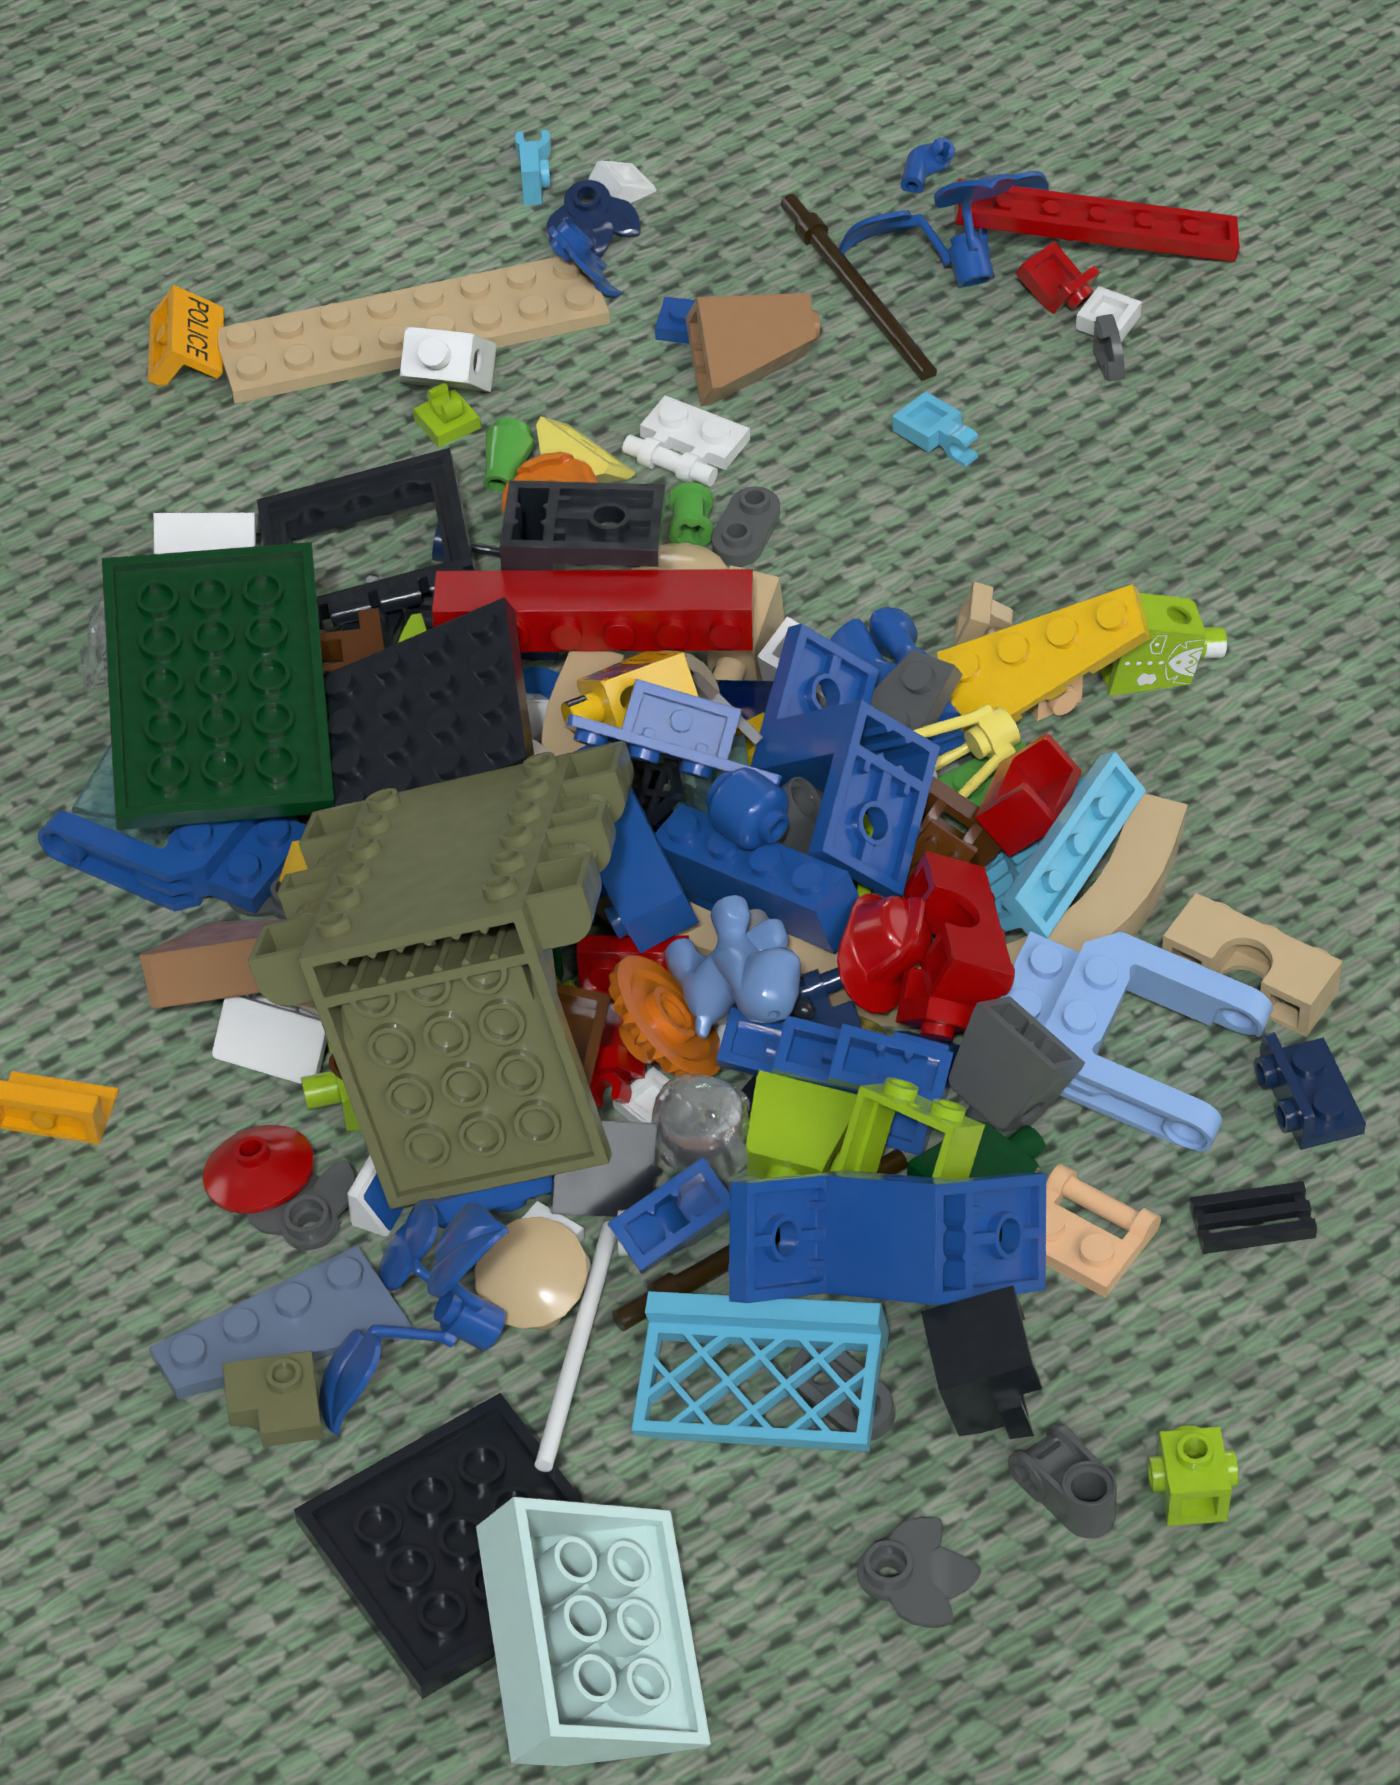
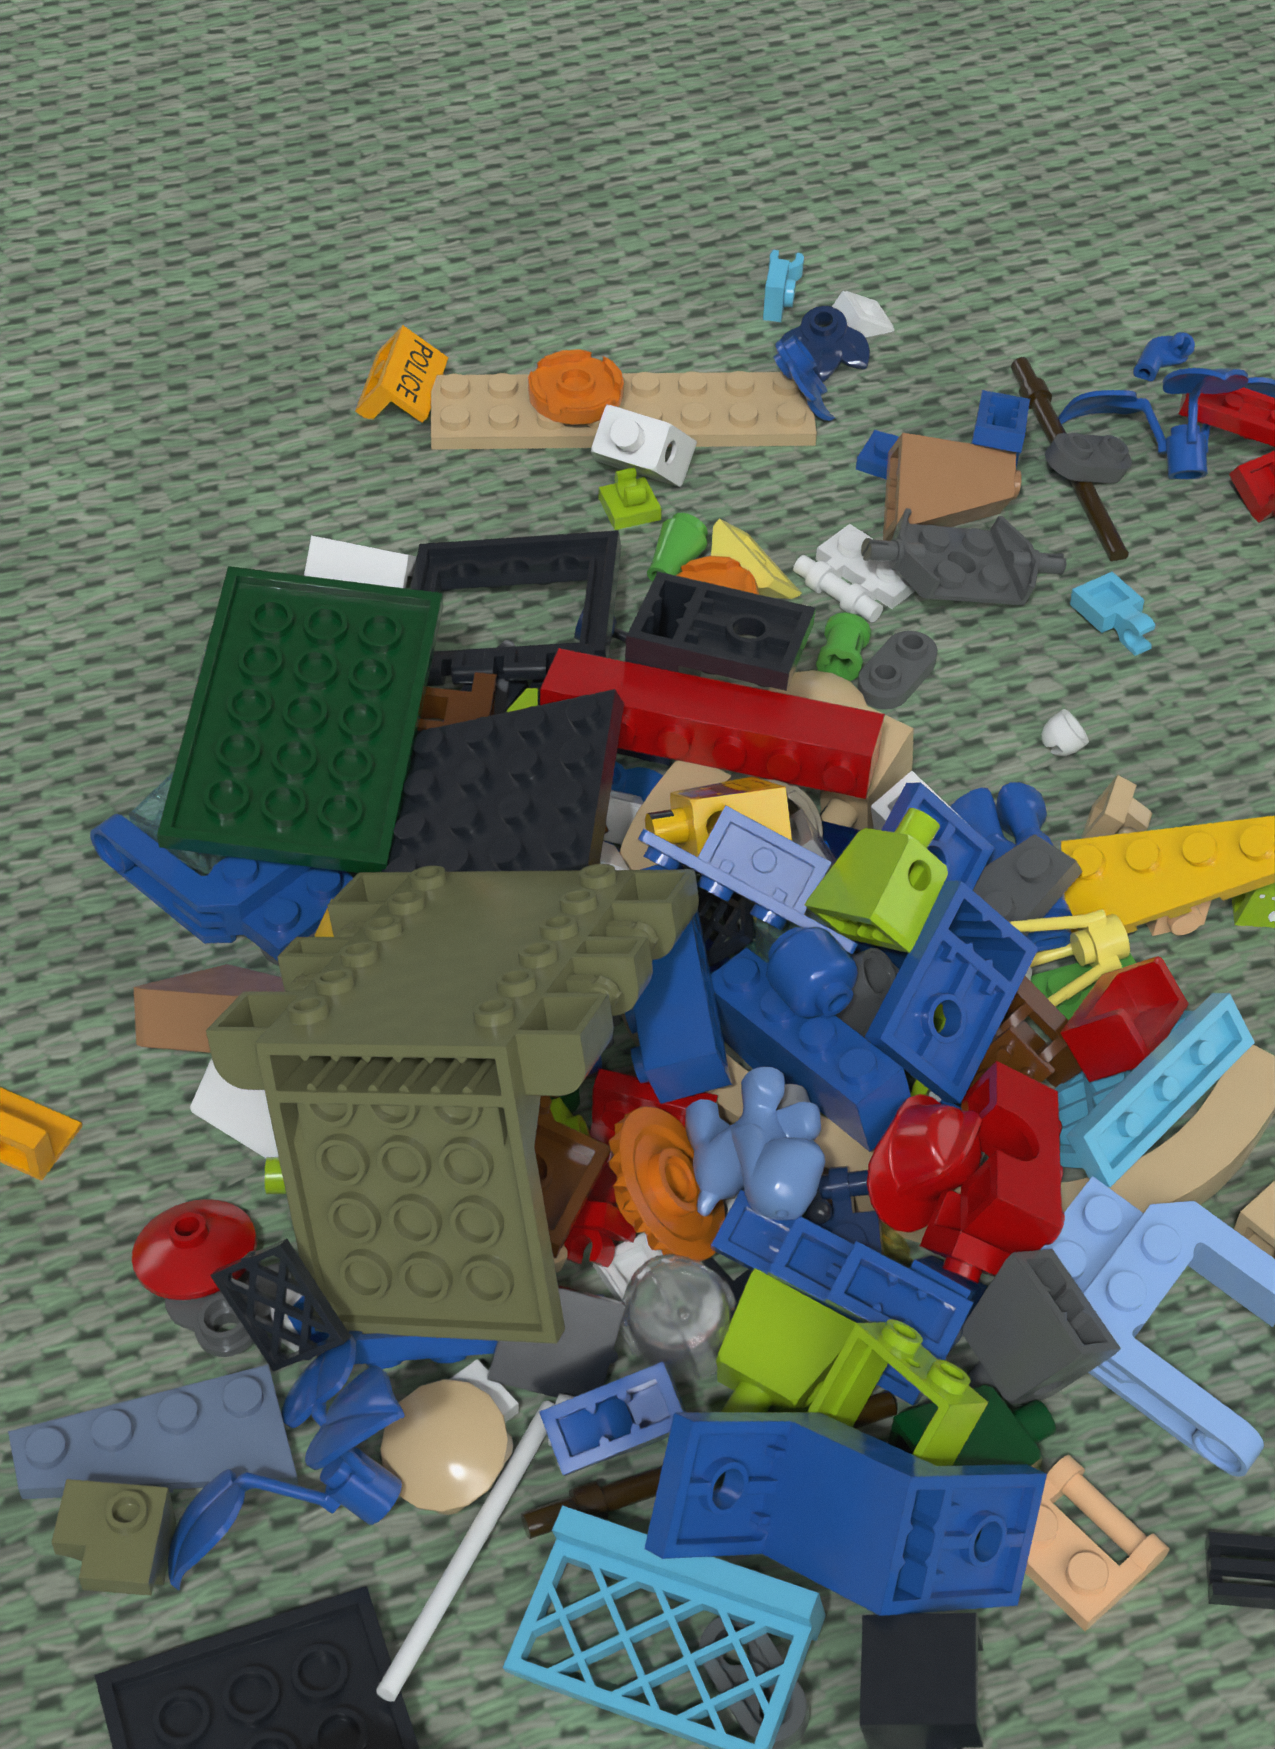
camera: 10 degrees right, 0 degrees up
(362, 313) = (575, 387): none -> orange tile
(381, 1165) = (304, 1285): none -> black window
(785, 410) = (965, 562): none -> dark grey plate
(786, 266) = (1001, 422): none -> blue arch
(792, 719) = (883, 884): none -> lime torso
(878, 283) = (1089, 457): none -> dark grey plate
(915, 555) = (1064, 734): none -> white hinge

